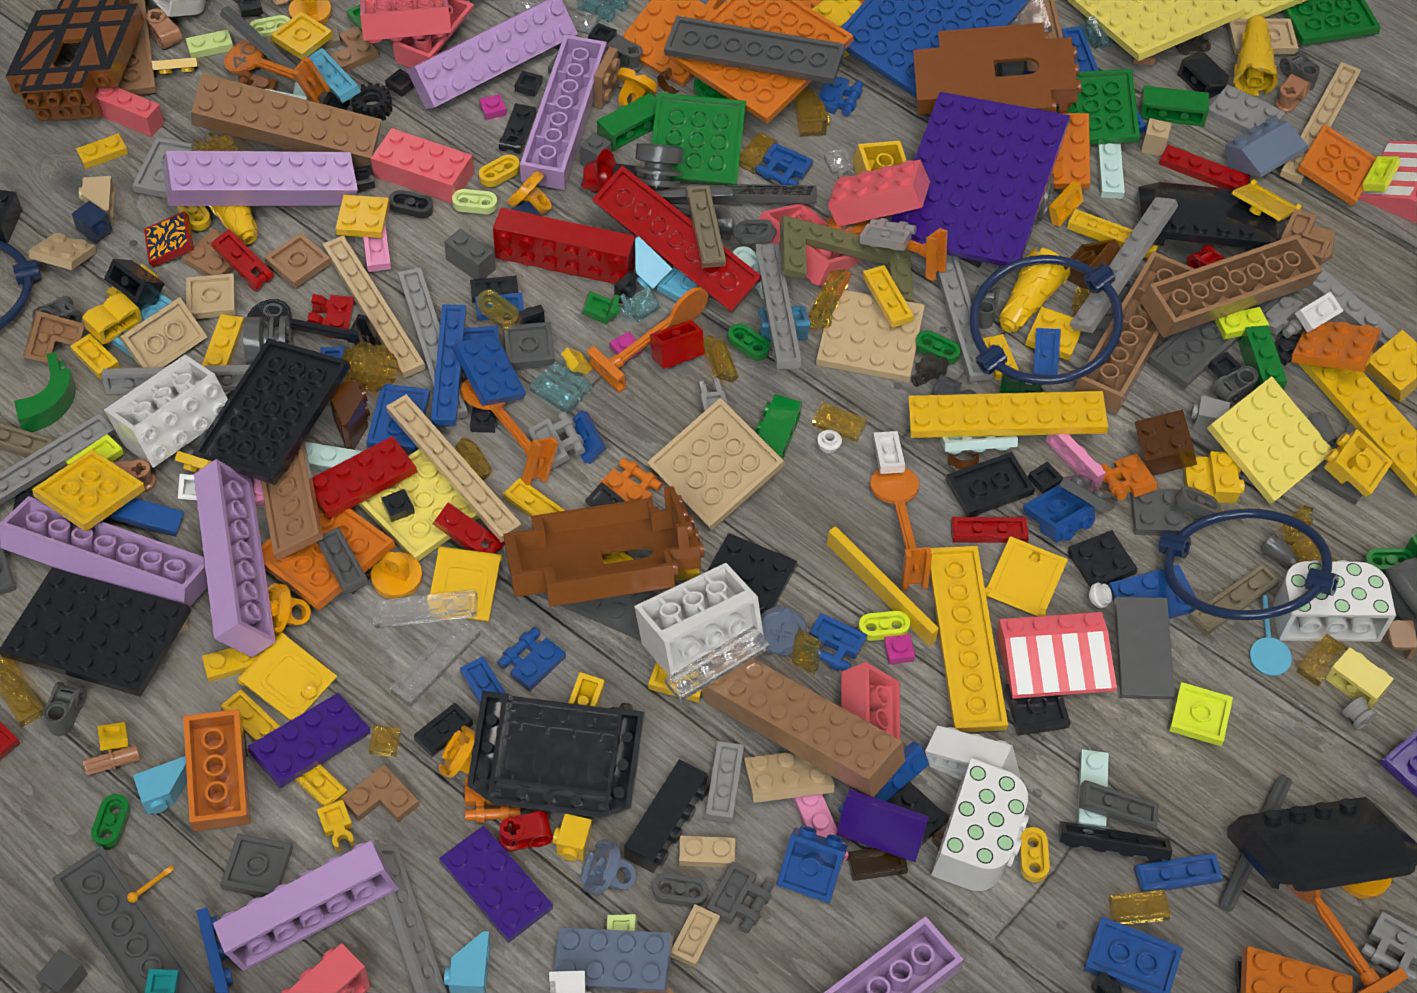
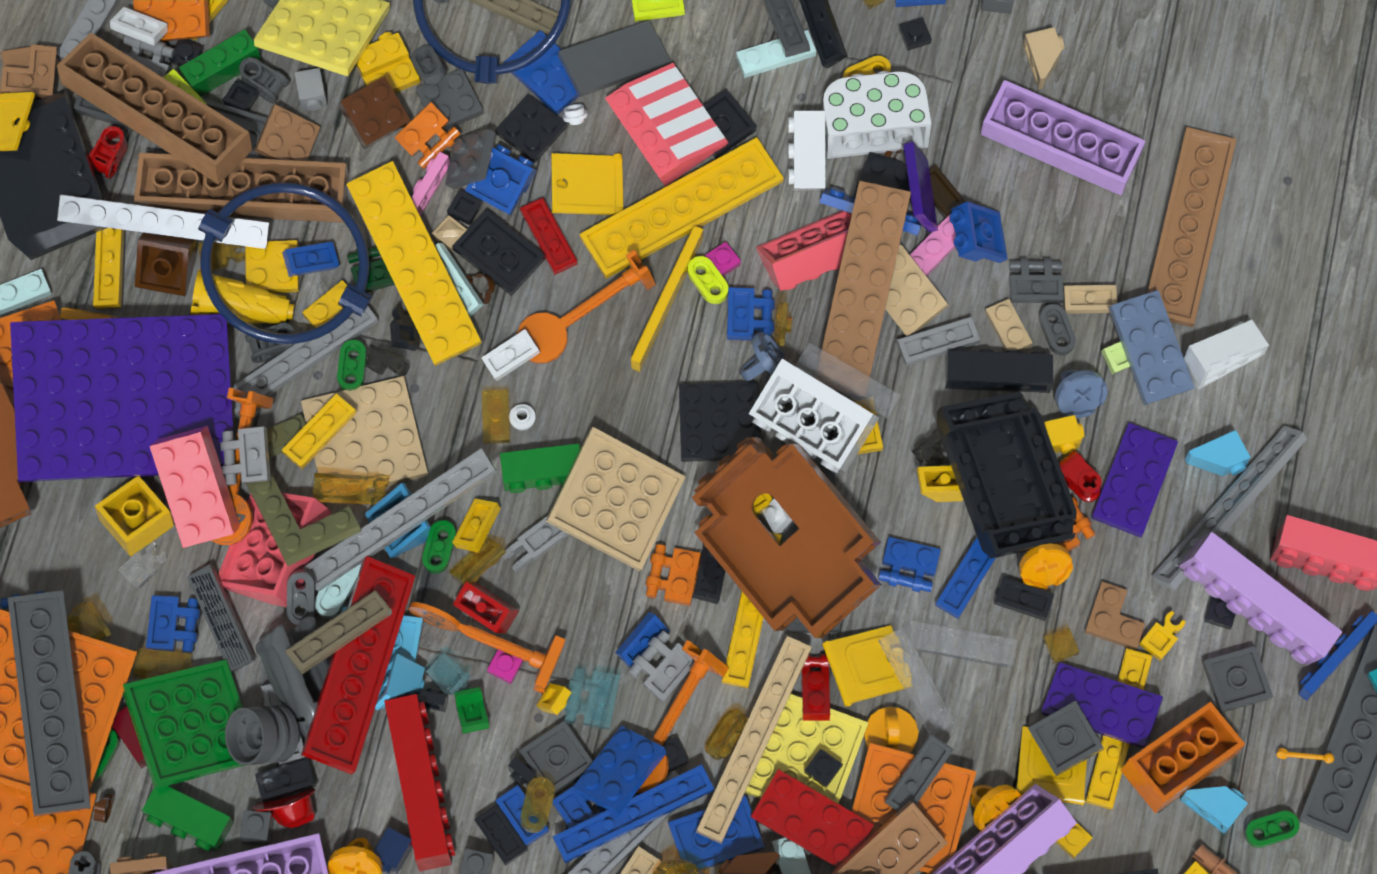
camera: 115 degrees left, 15 degrees up
(297, 687) = (1066, 738): none -> dark grey plate
(634, 85) = (133, 833): light orange tile -> none
(751, 369) = (476, 525): none -> yellow plate
(1028, 459) = (448, 232): none -> tan tile
(1061, 924) = (915, 34): none -> black plate
(1169, 379) = (286, 136): none -> medium nougat plate

